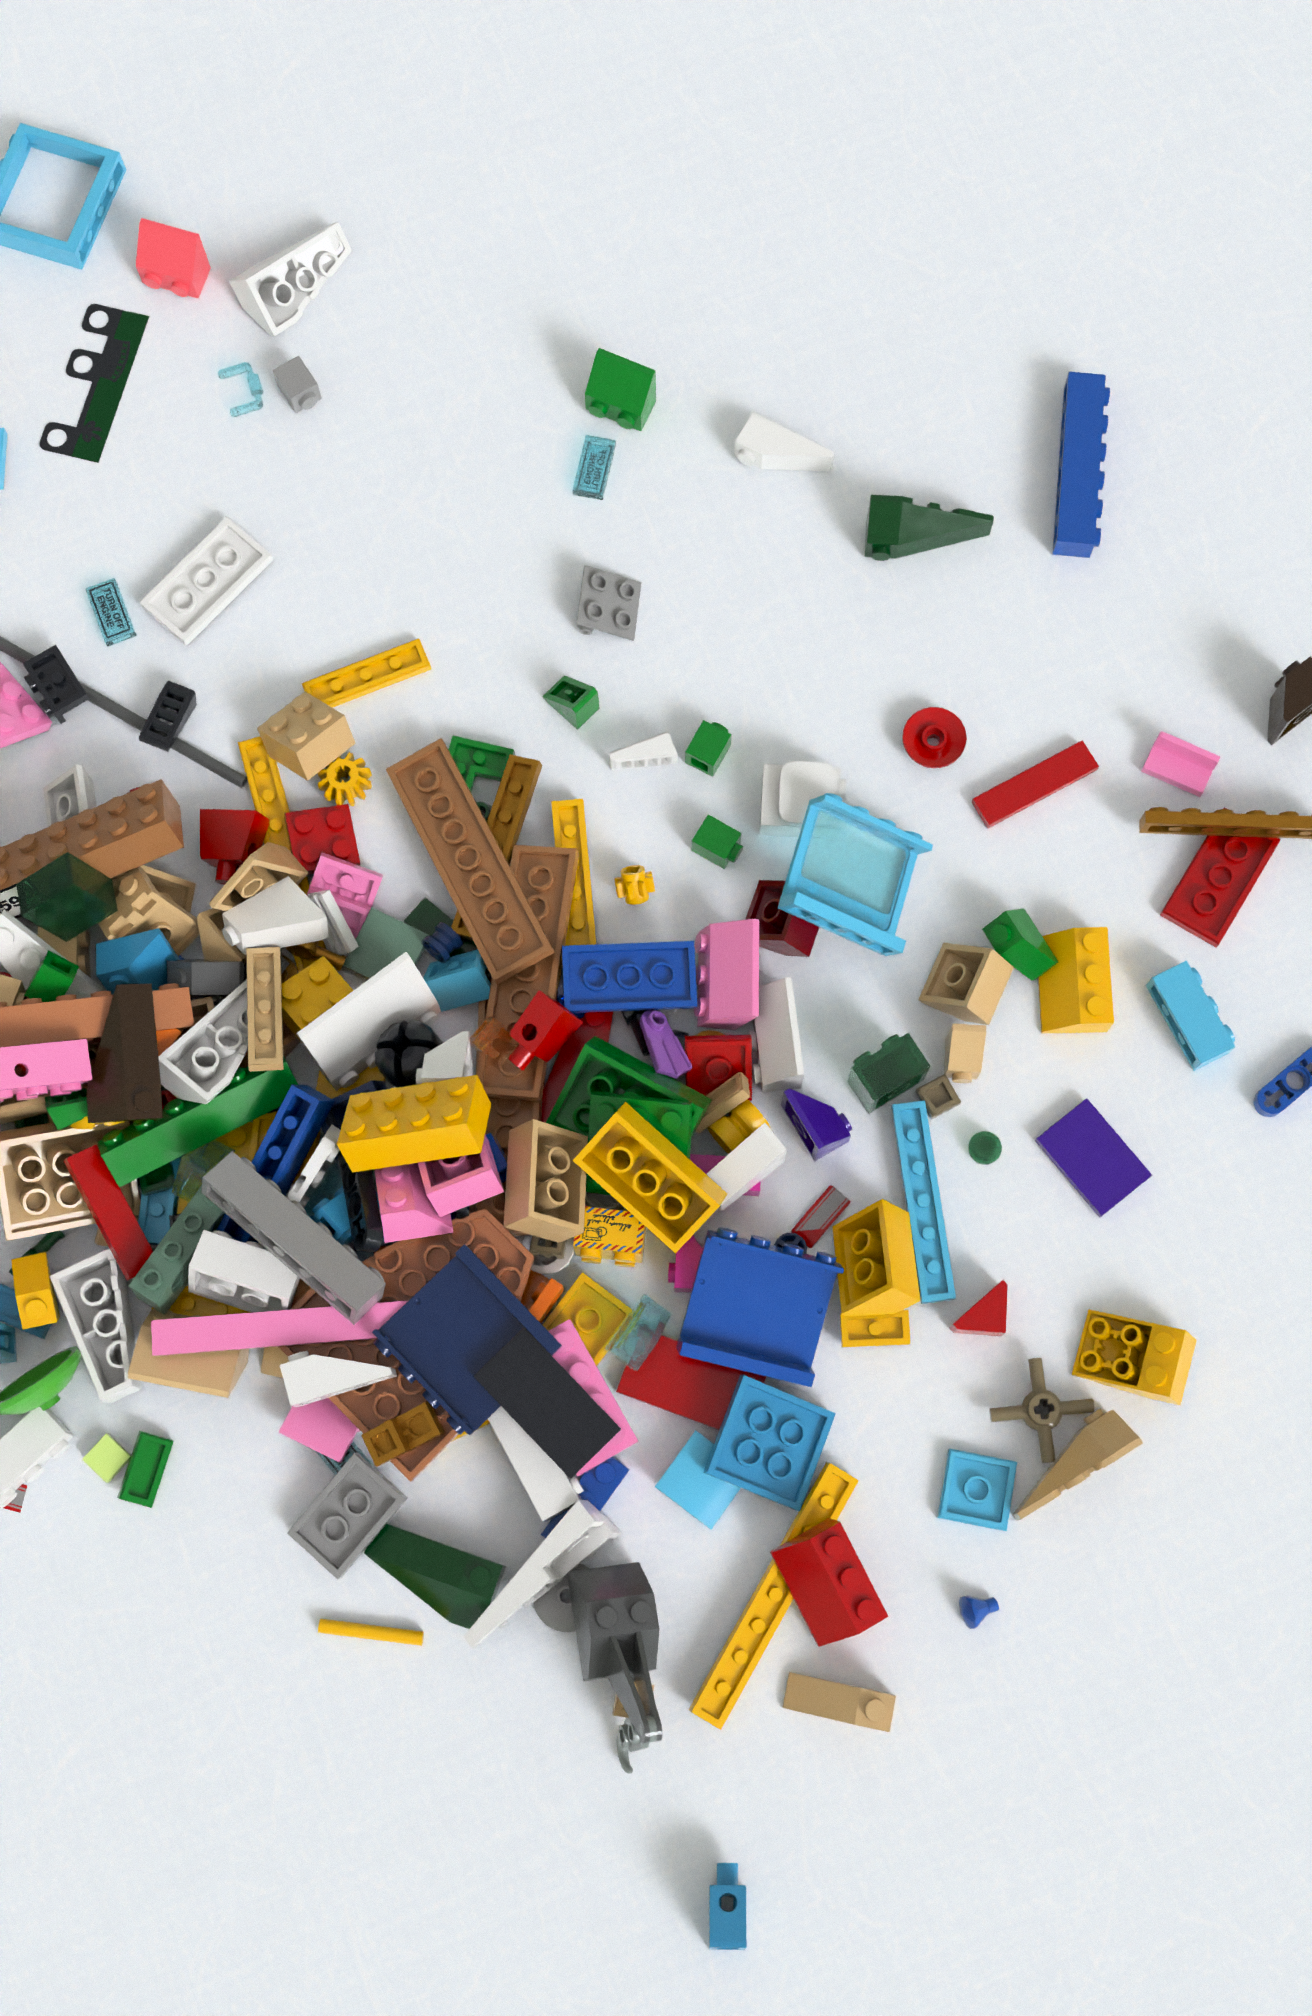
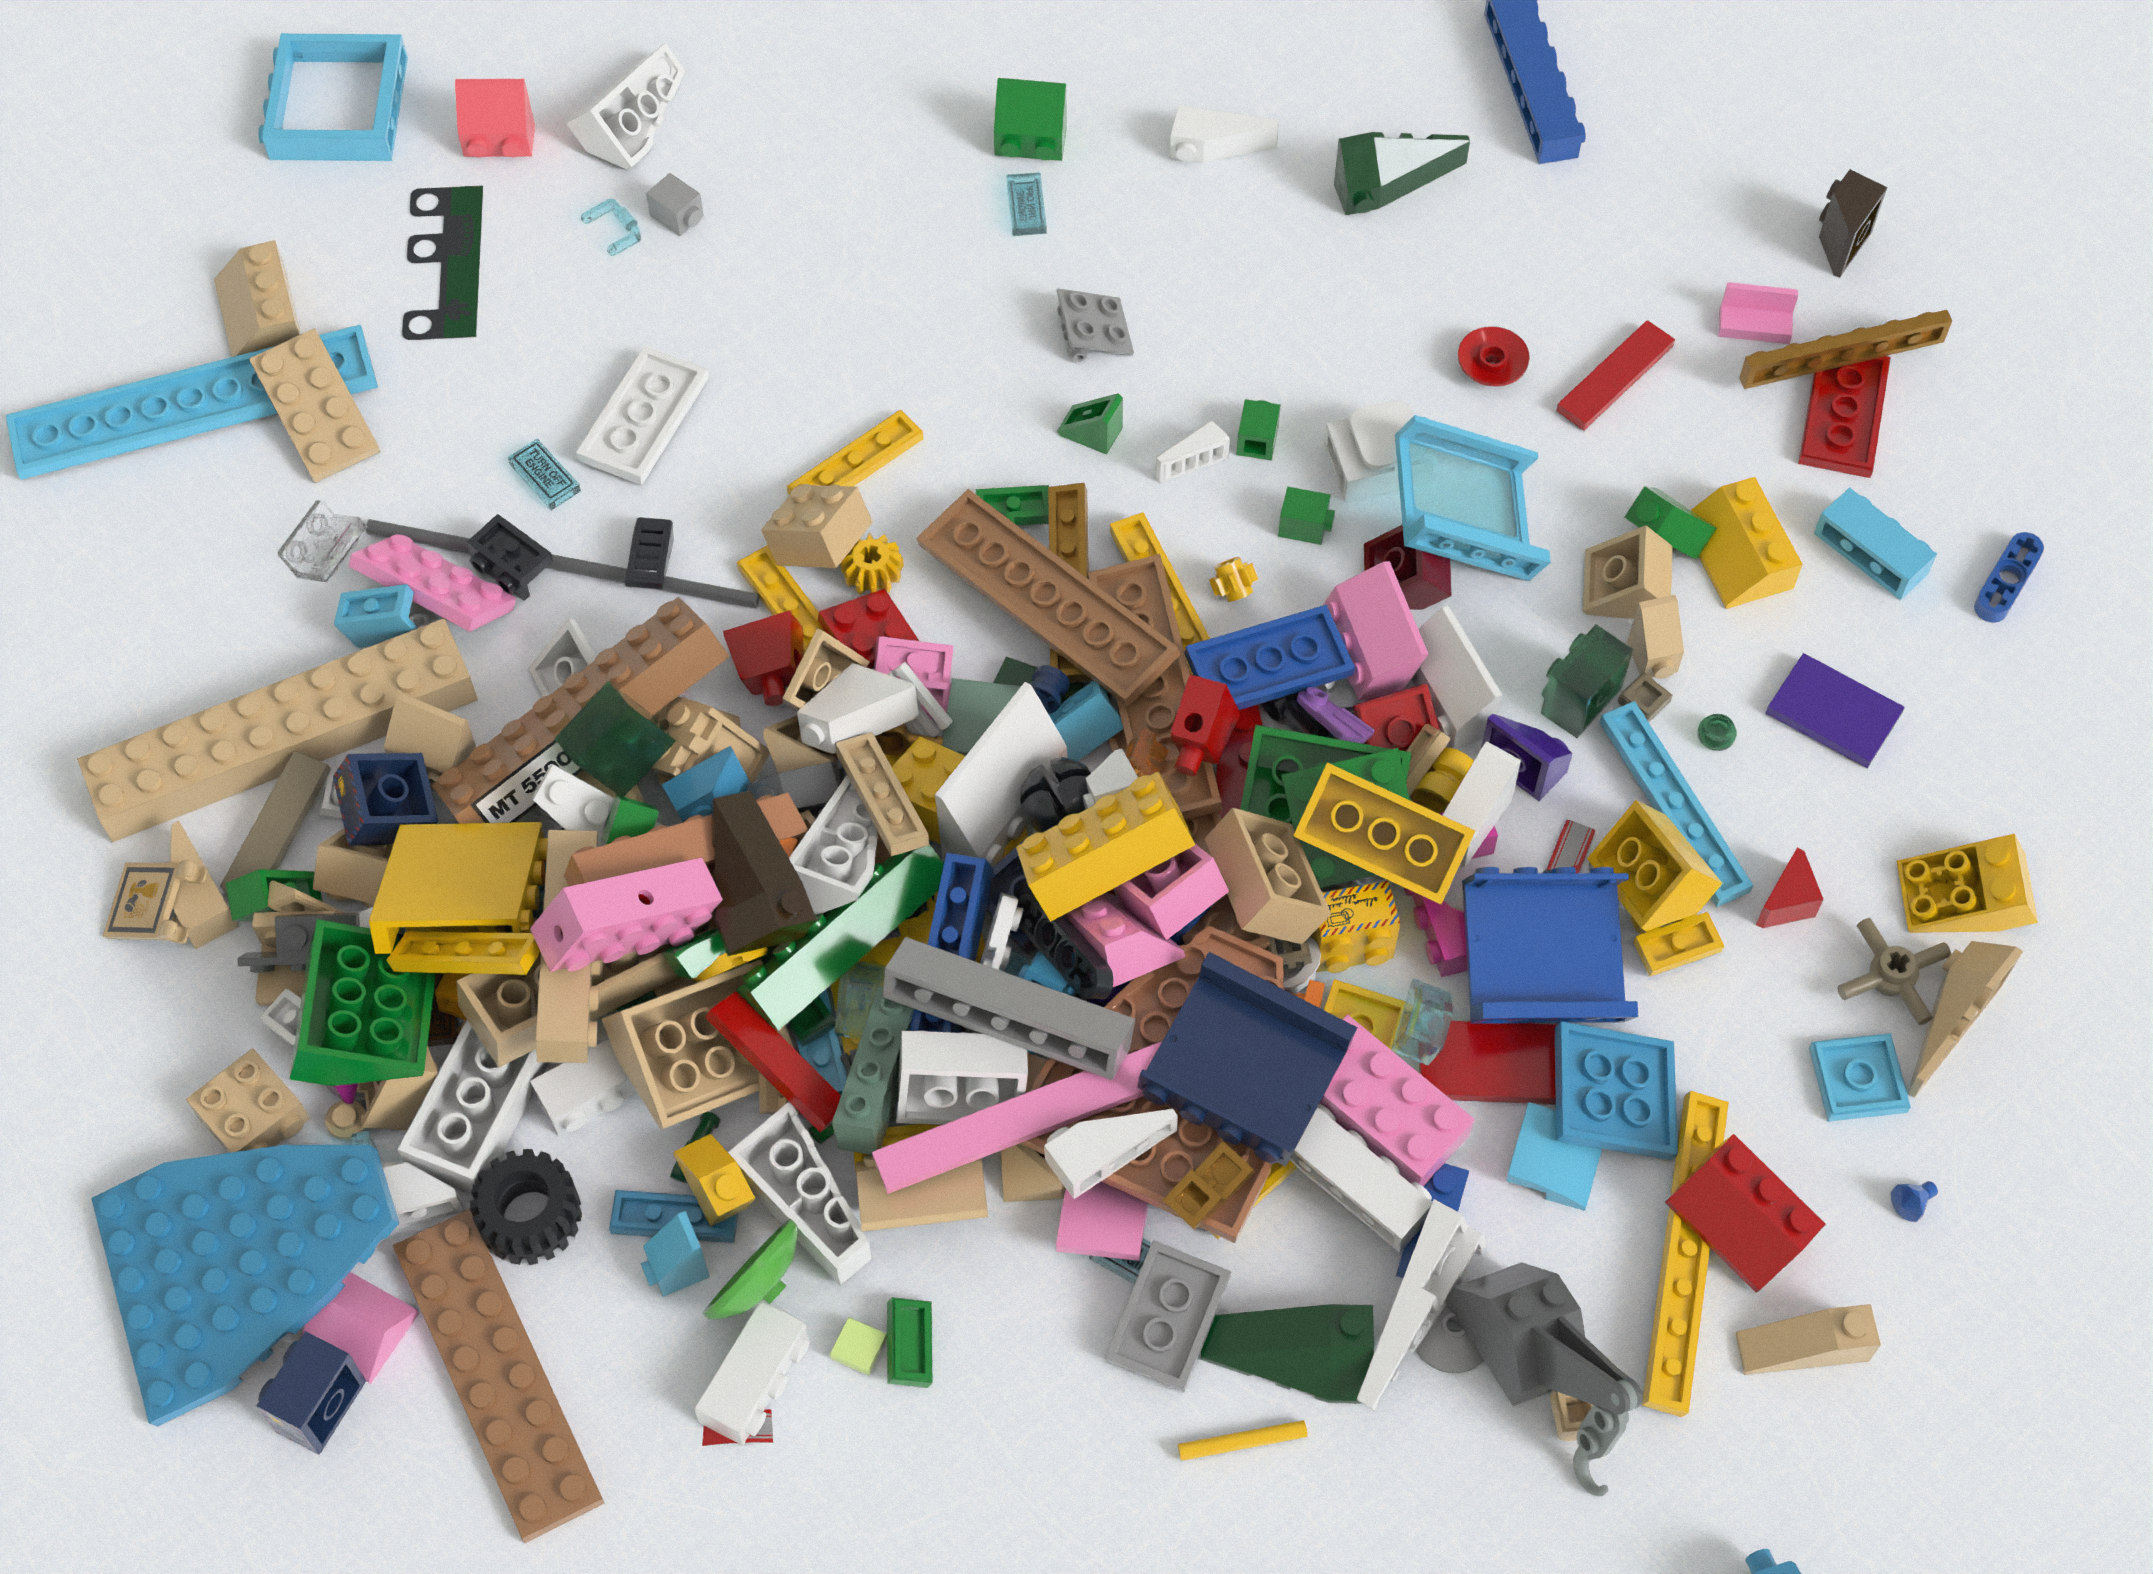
camera: 20 degrees left, 15 degrees down
(547, 1402) = (1361, 1101): black tile -> none

